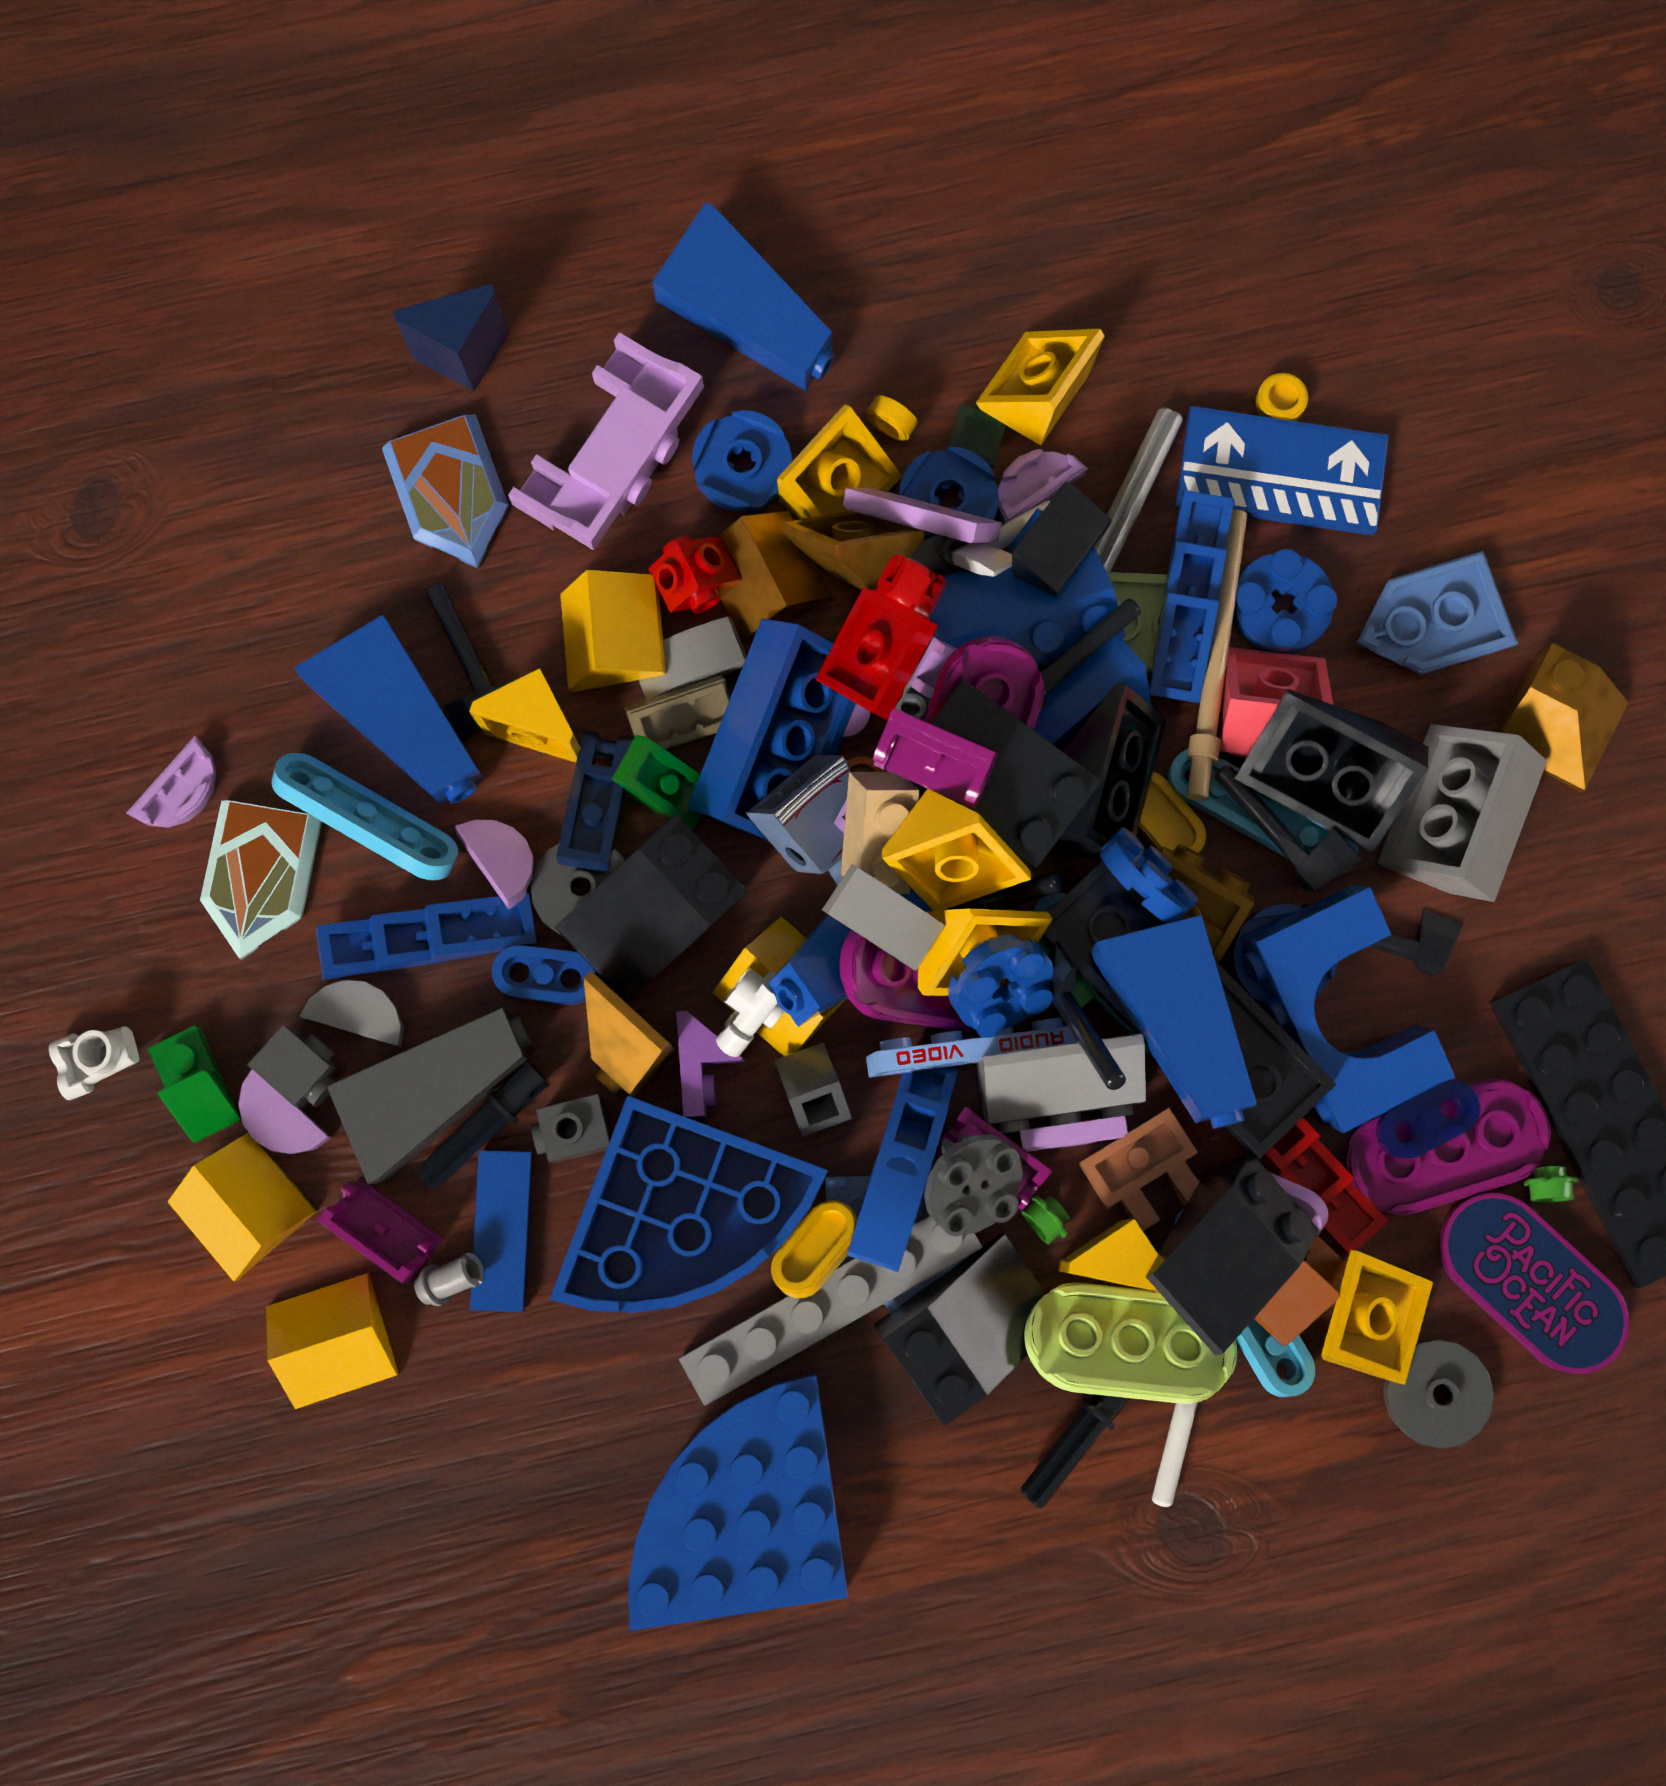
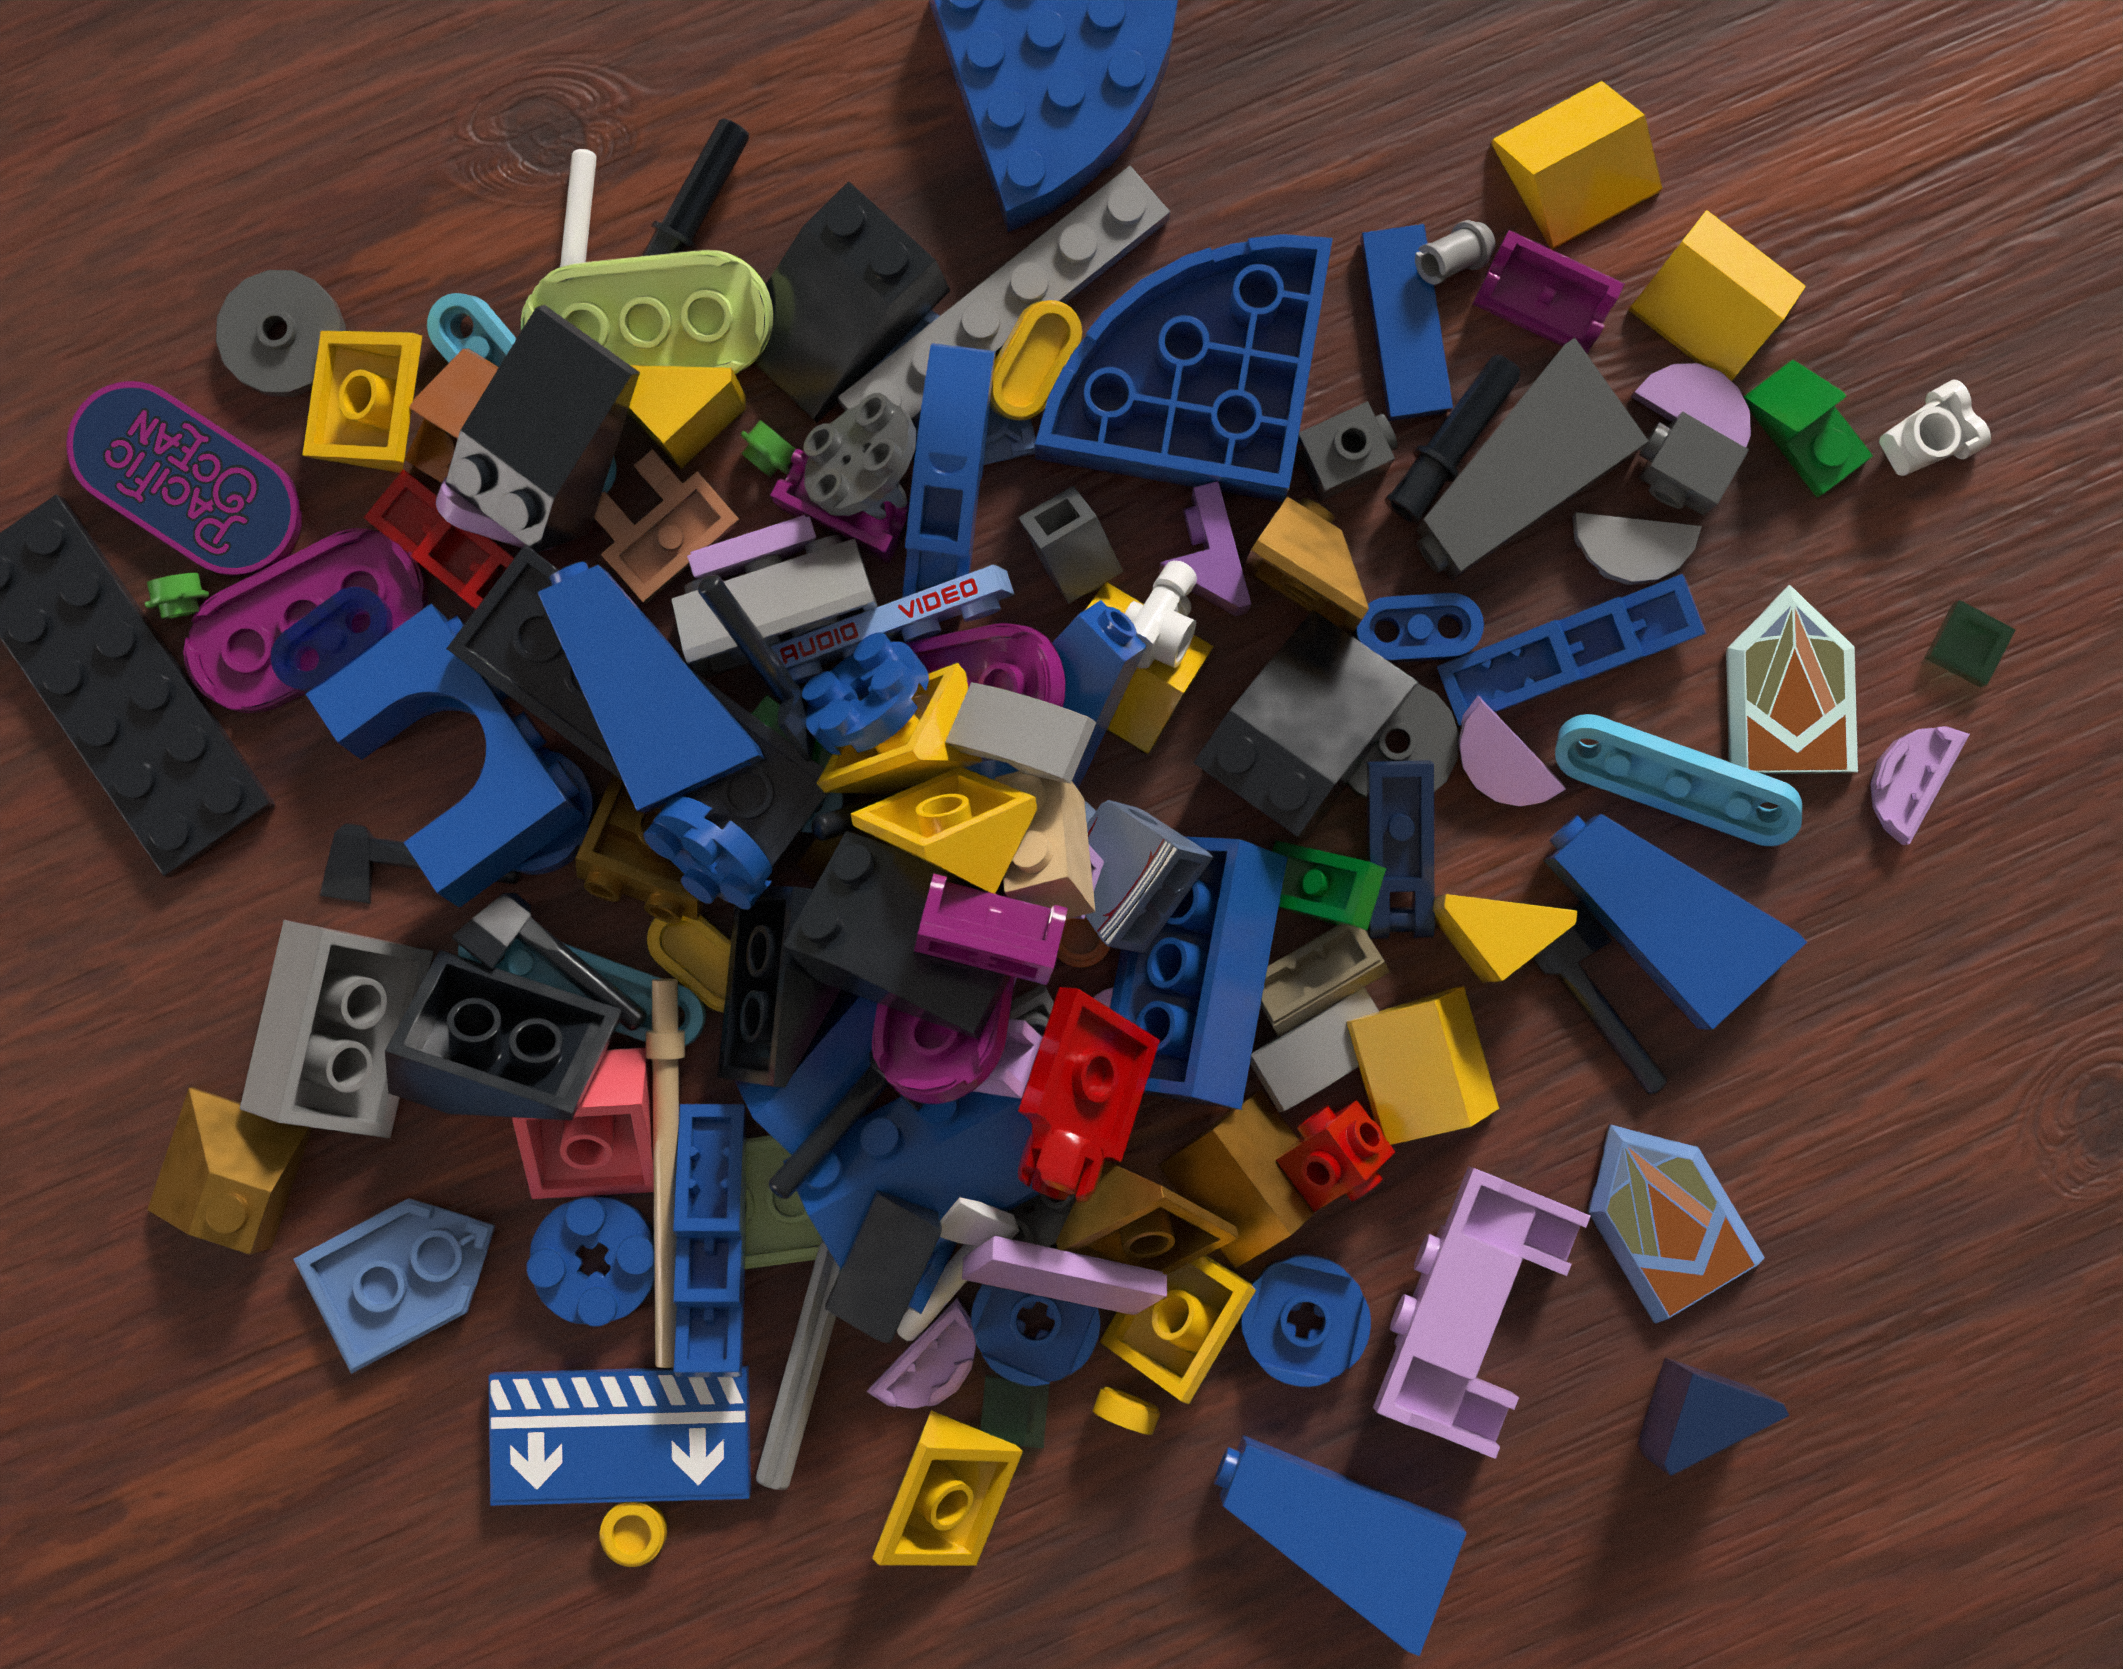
camera: 170 degrees right, 5 degrees up
(107, 886) = (1970, 643): none -> clear green tile

